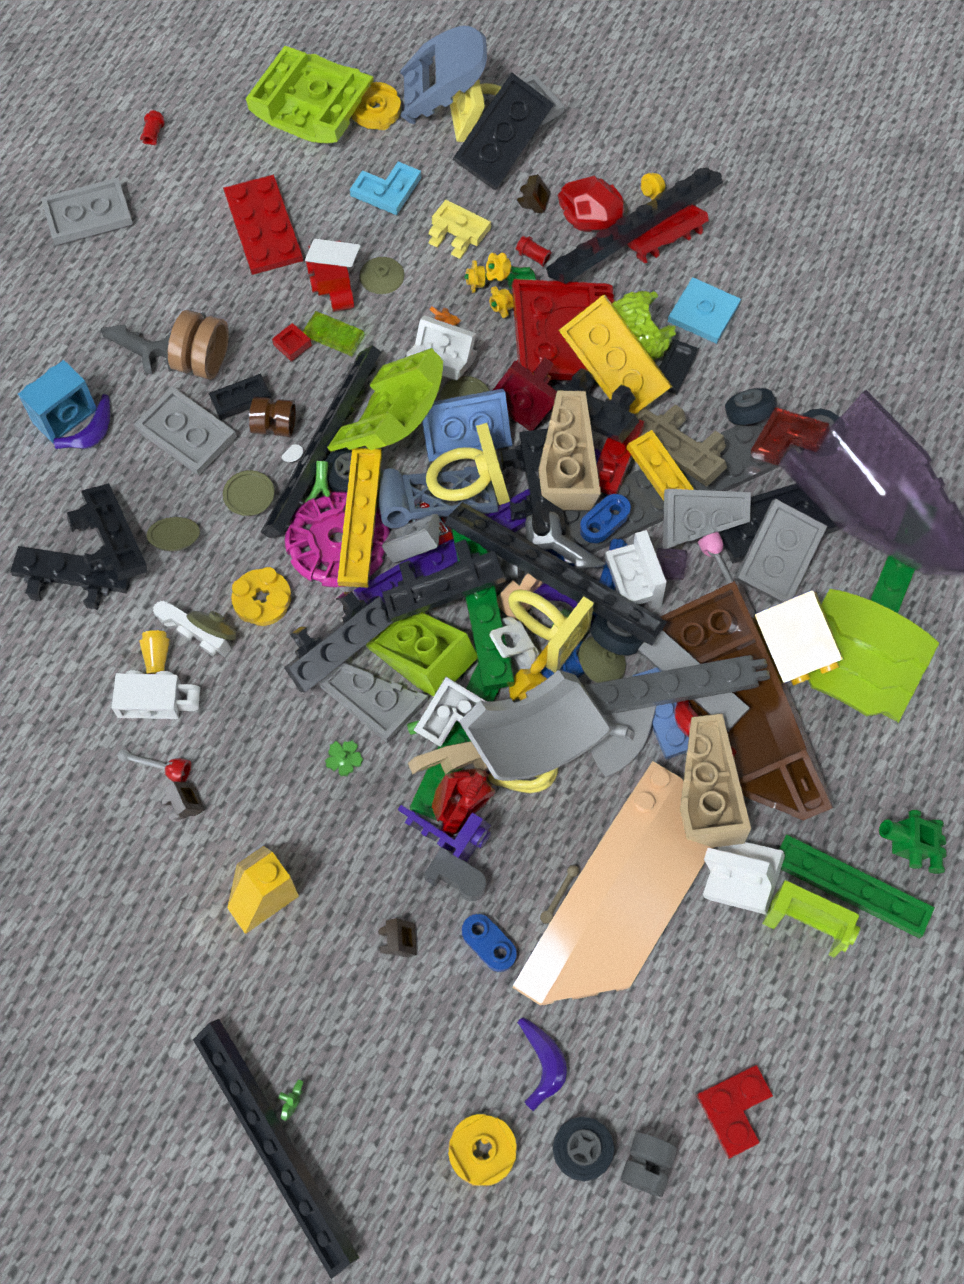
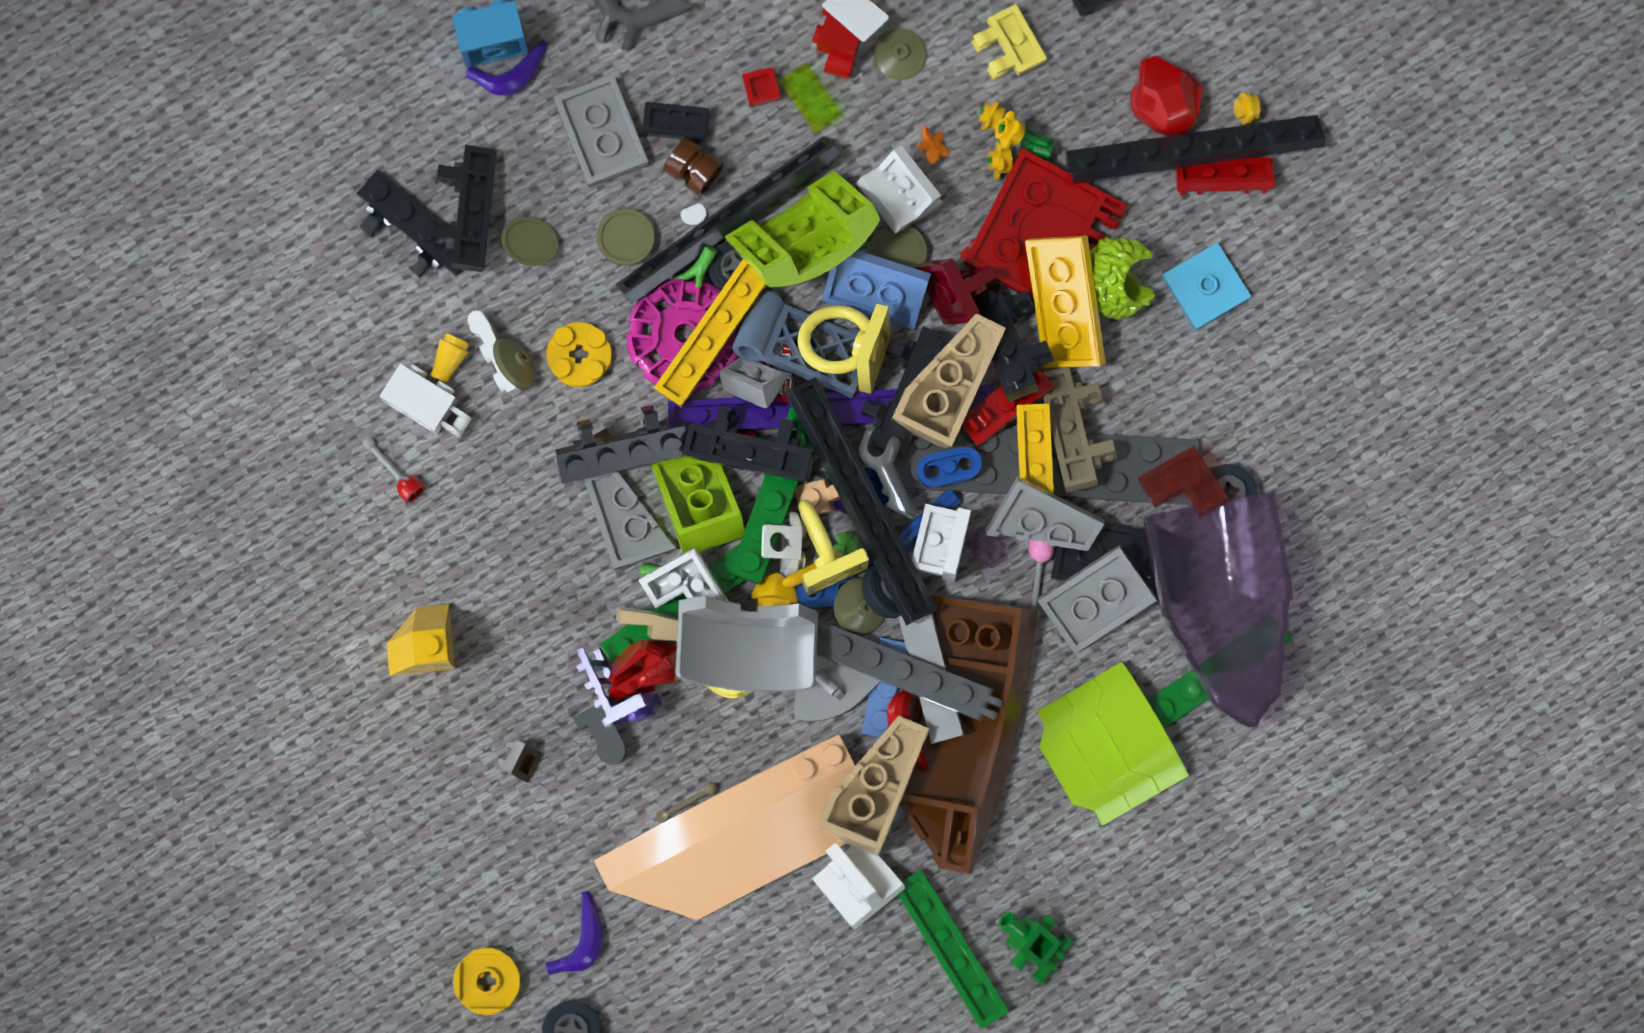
camera: 30 degrees right, 15 degrees up
(183, 799) = (400, 520): dark brown tile -> none
(198, 344) = (661, 45): medium nougat wheel -> none
(276, 1149) = (316, 875): black plate -> none
(292, 1100) = (351, 846): bright green plant -> none
(343, 758) = (567, 561): bright green plant -> none
(489, 941) = (597, 809): blue plate -> none
(533, 250) = (1072, 116): red pin -> none
(534, 194) = (1115, 49): dark brown tile -> none
(677, 363) = (1134, 334): black tile -> none
(750, 406) = (1174, 426): black wheel -> none
(799, 638) = (1054, 695): slope -> none
(815, 912) = (894, 951): lime panel -> none

